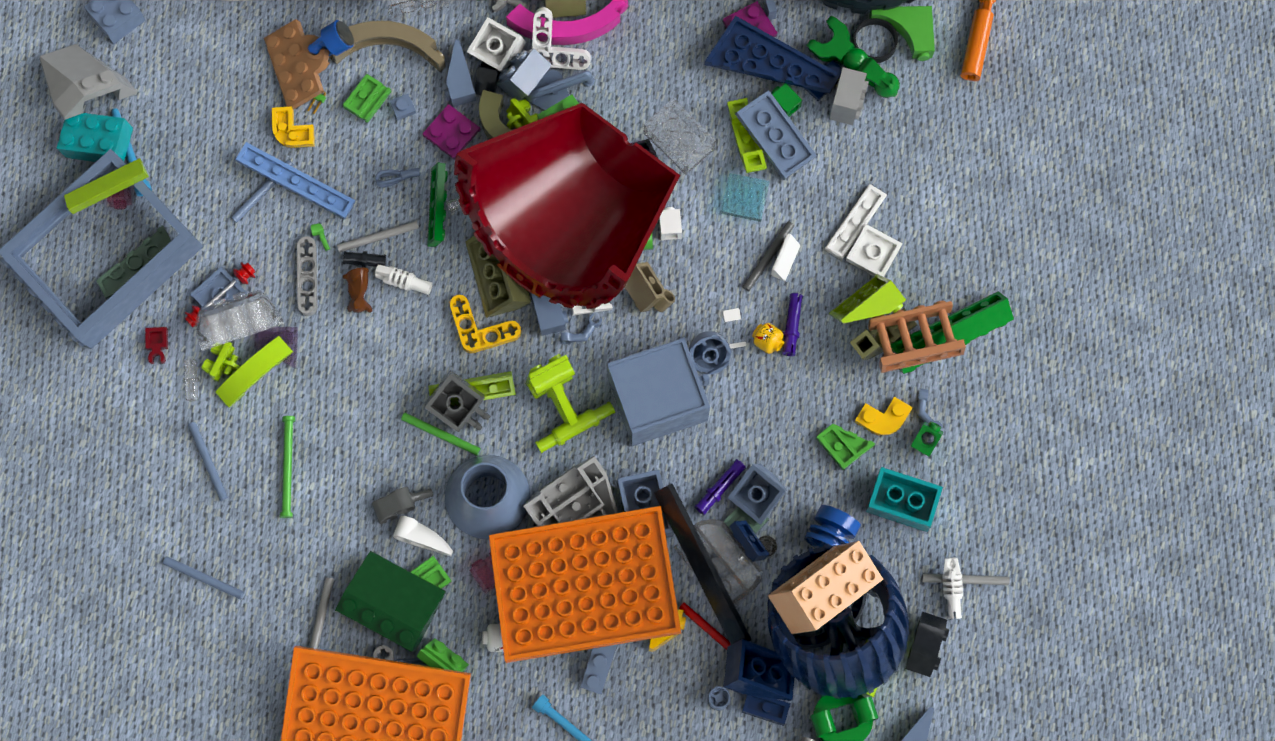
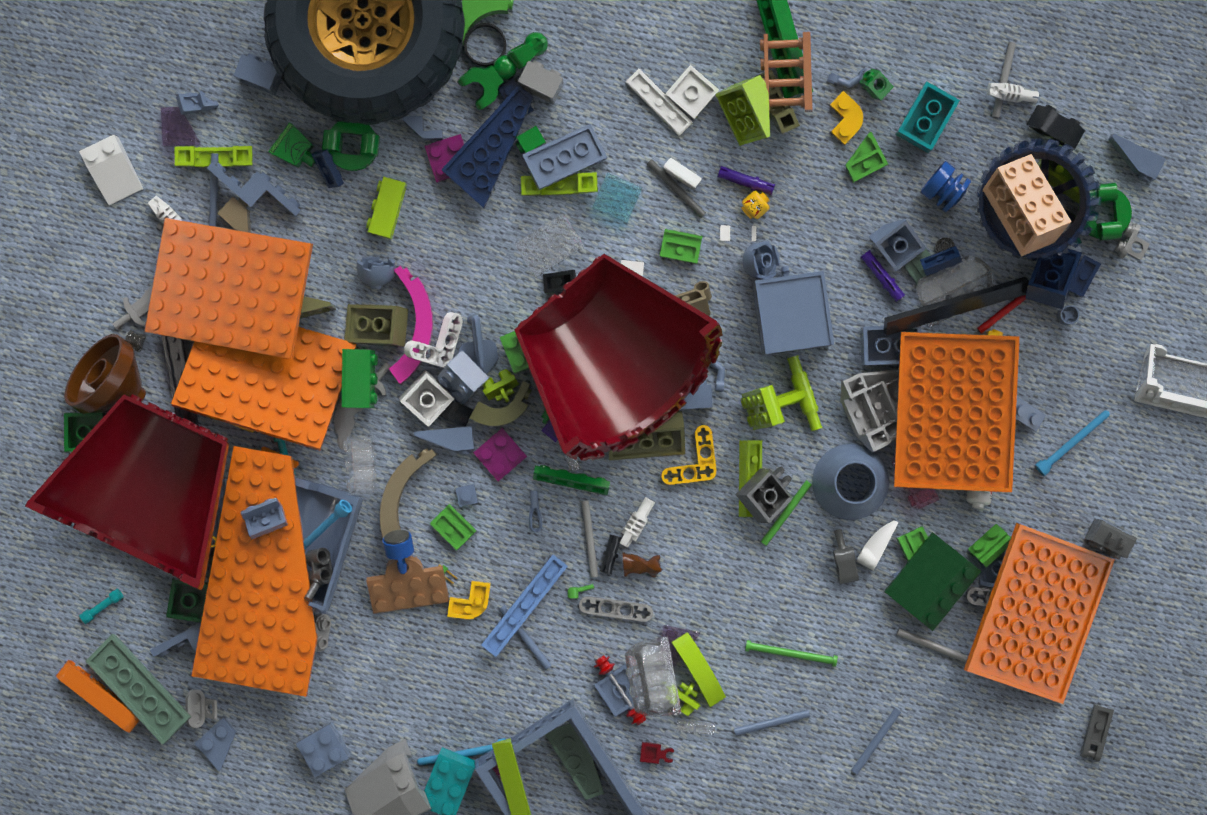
camera: 75 degrees left, 15 degrees up
(707, 270) = (680, 246): none -> bright green plate

